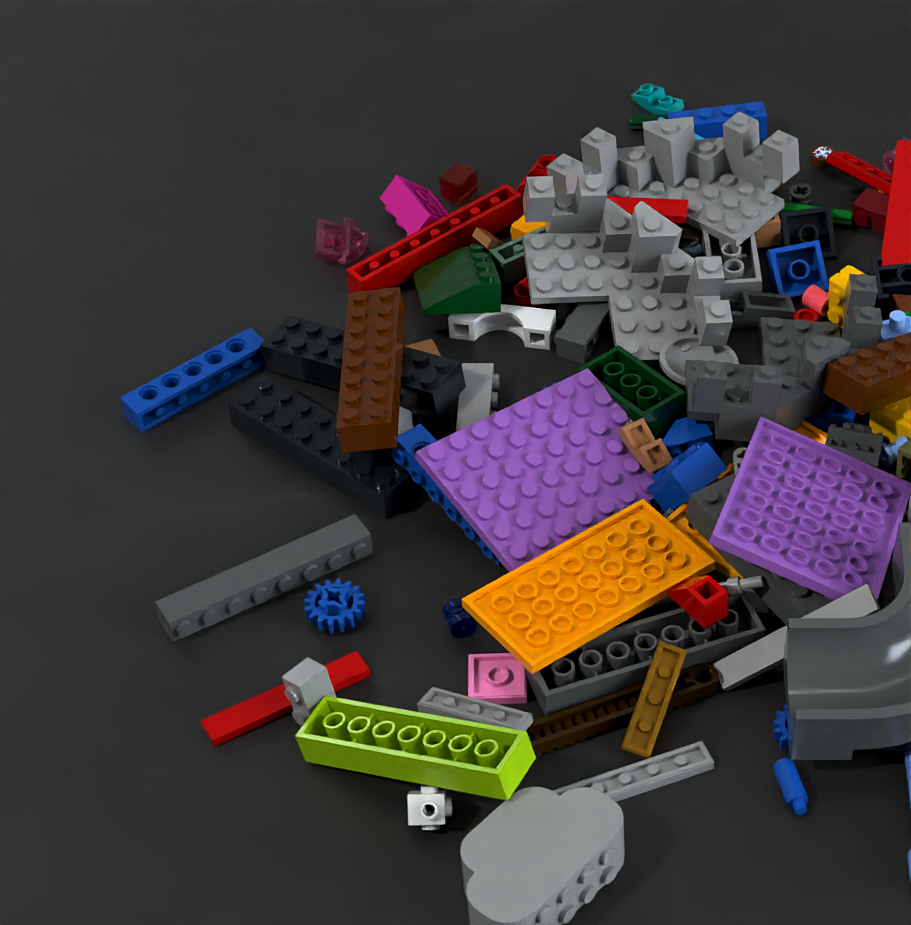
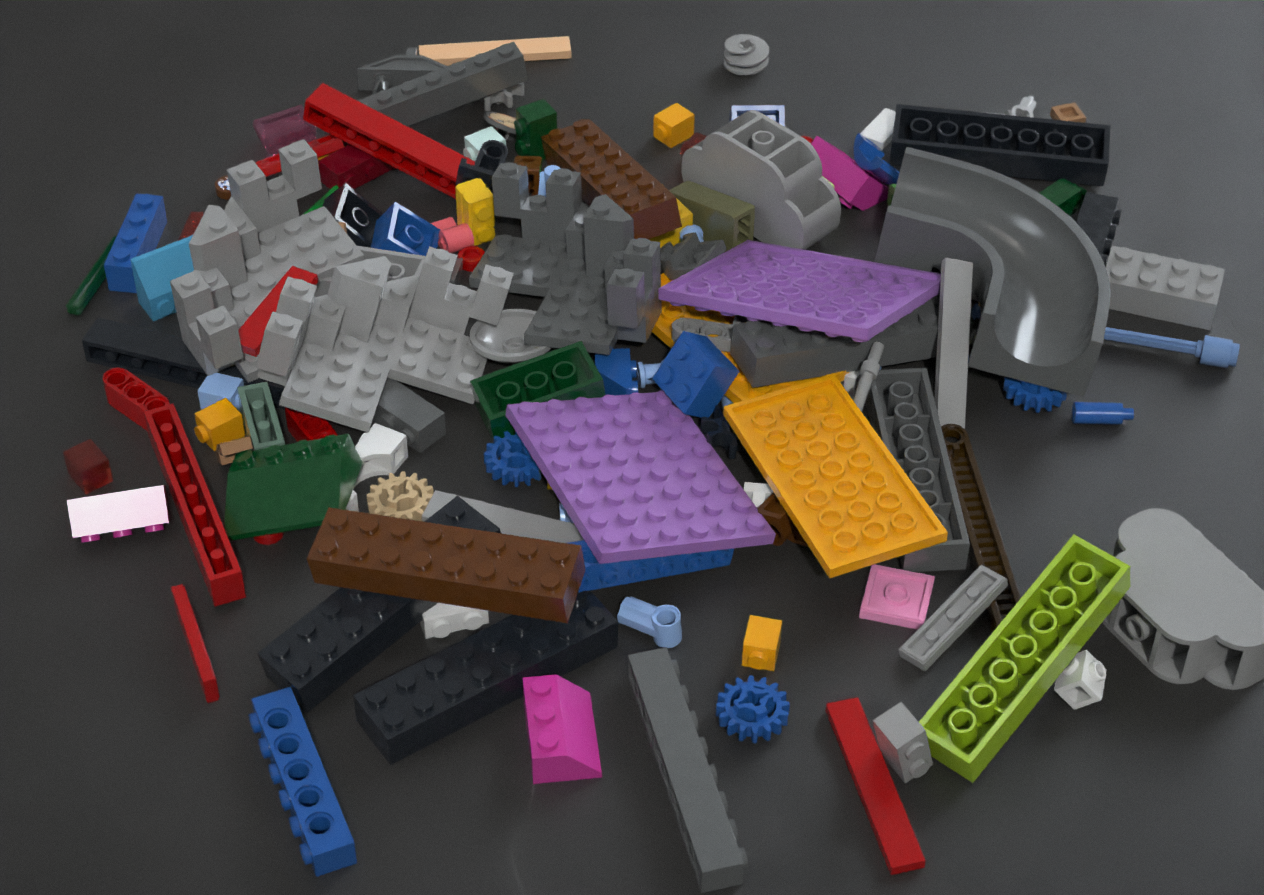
camera: 80 degrees left, 0 degrees up
(280, 499) = (560, 730): none -> dark pink slope
(303, 290) = (195, 643): none -> red tile
(338, 241) = (122, 594): clear pink slope -> none
(405, 597) = (761, 643): none -> light orange brick
(409, 526) = (660, 621): none -> light blue piece
(459, 621) = (808, 604): clear blue wheel -> none
(488, 349) = (400, 497): none -> tan gear
(643, 446) = (637, 396): medium nougat slope -> none
(649, 773) = (1055, 501): light grey tile -> none
(653, 700) = (985, 471): pearl gold tile -> none
(654, 100) = (43, 285): teal slope -> none
(702, 599) = (889, 390): red slope -> none

